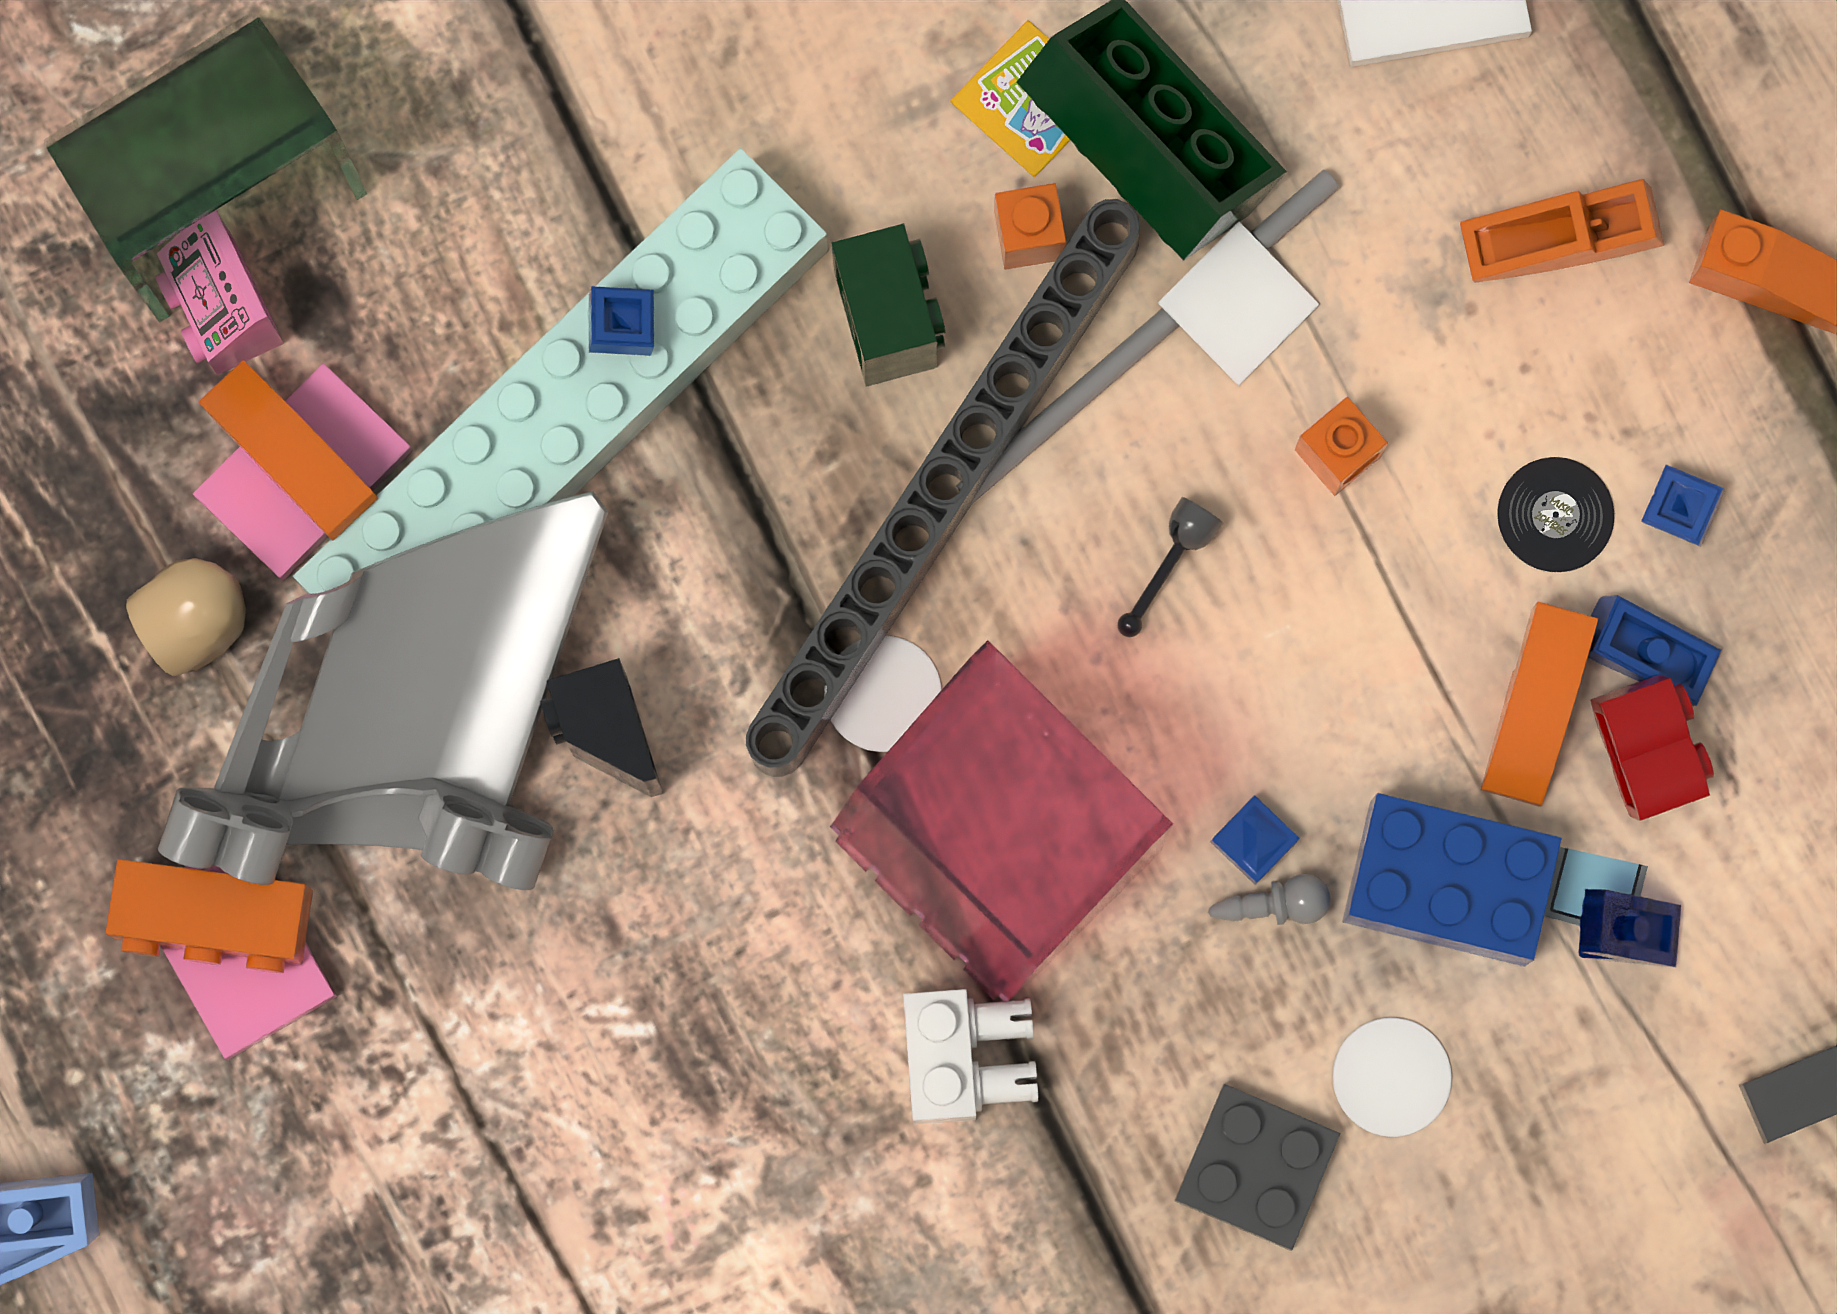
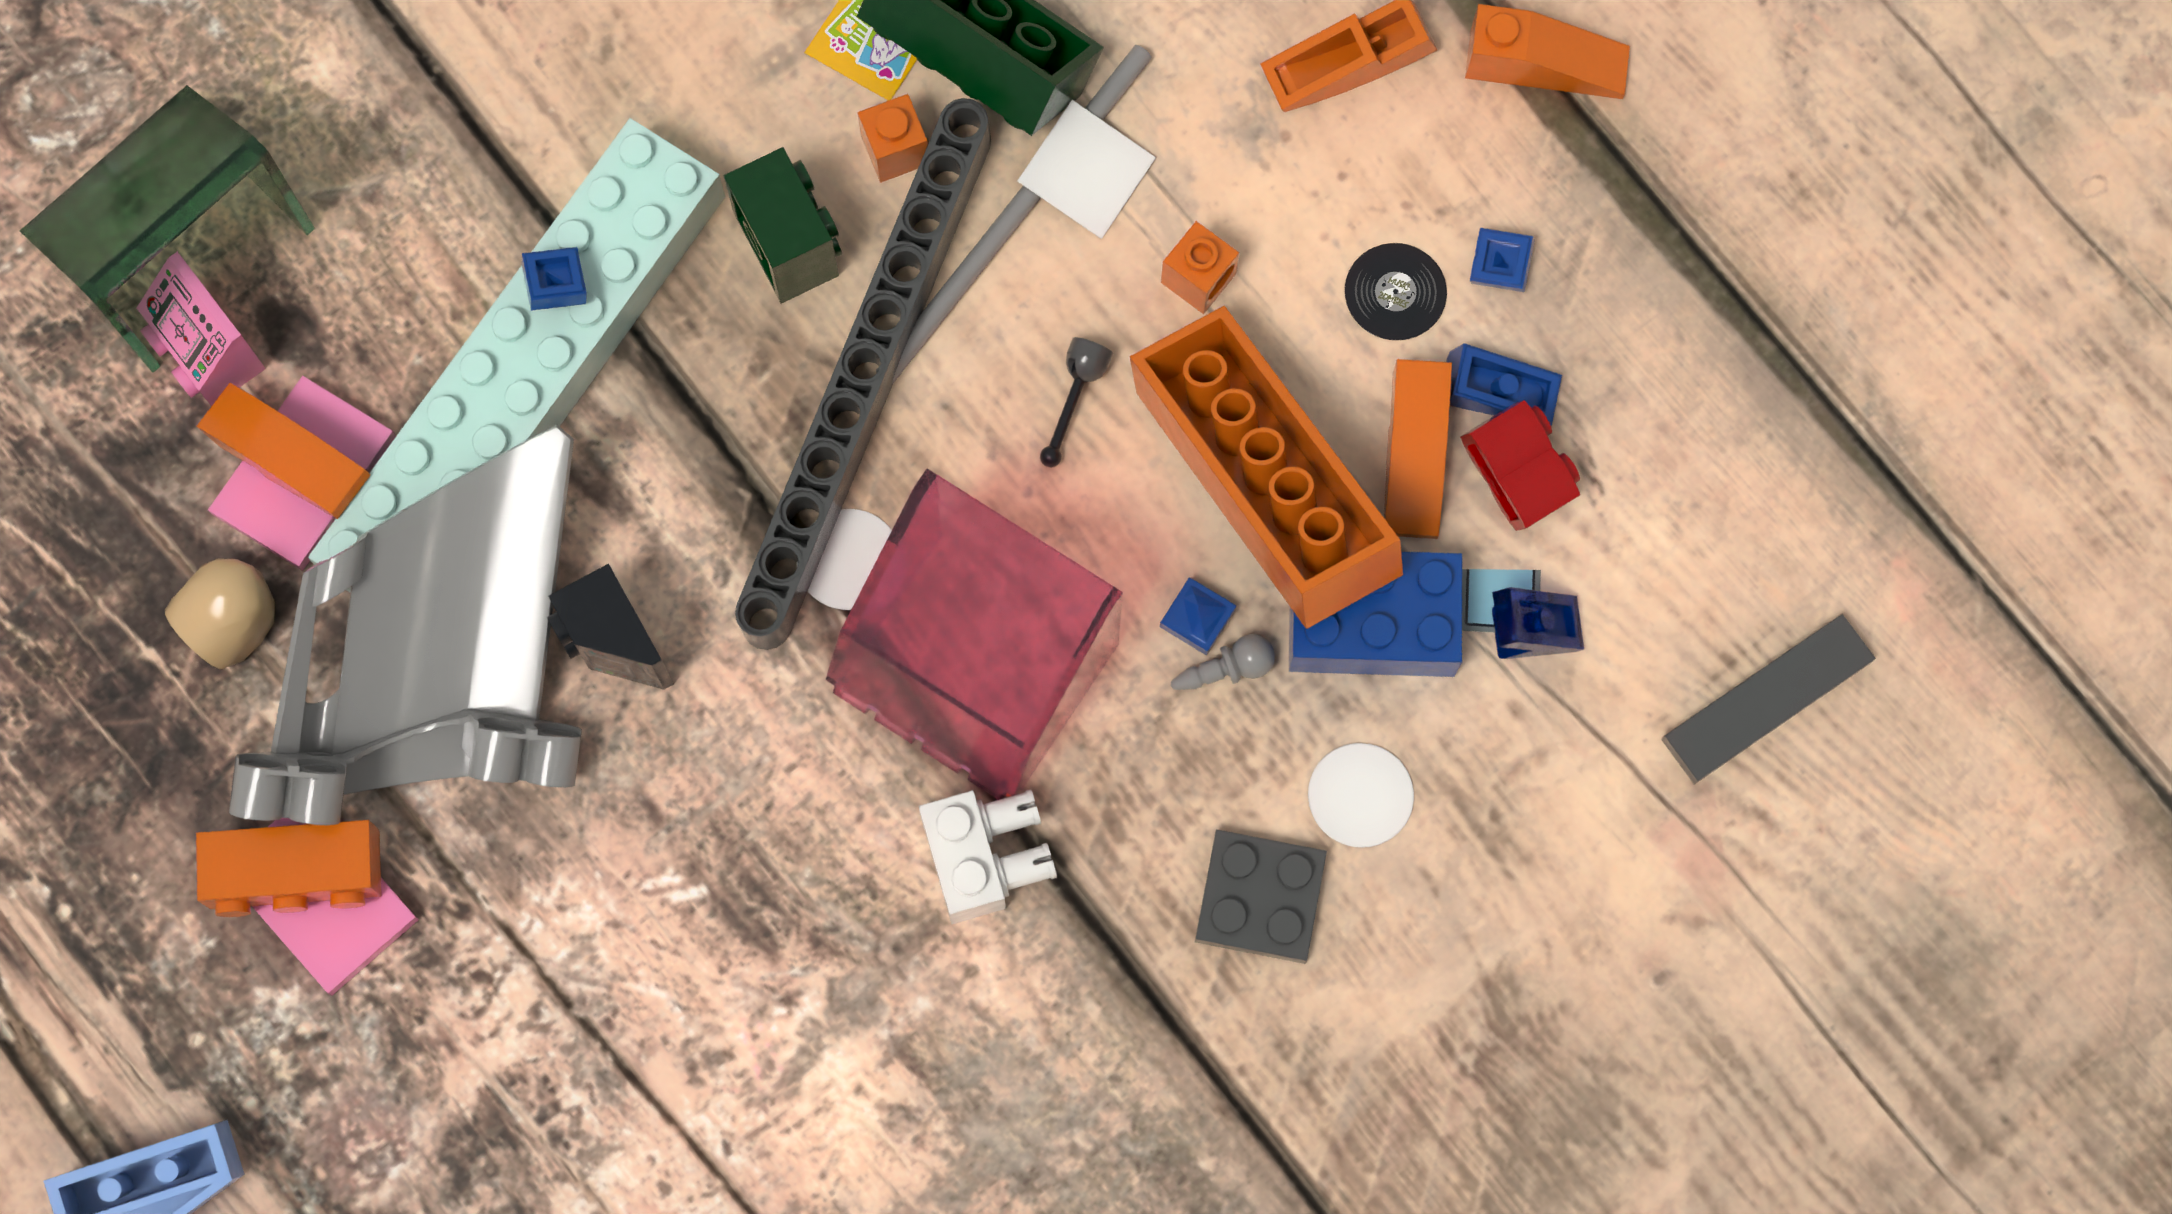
camera: 15 degrees left, 5 degrees down
(1365, 696) = (1267, 467): none -> orange brick

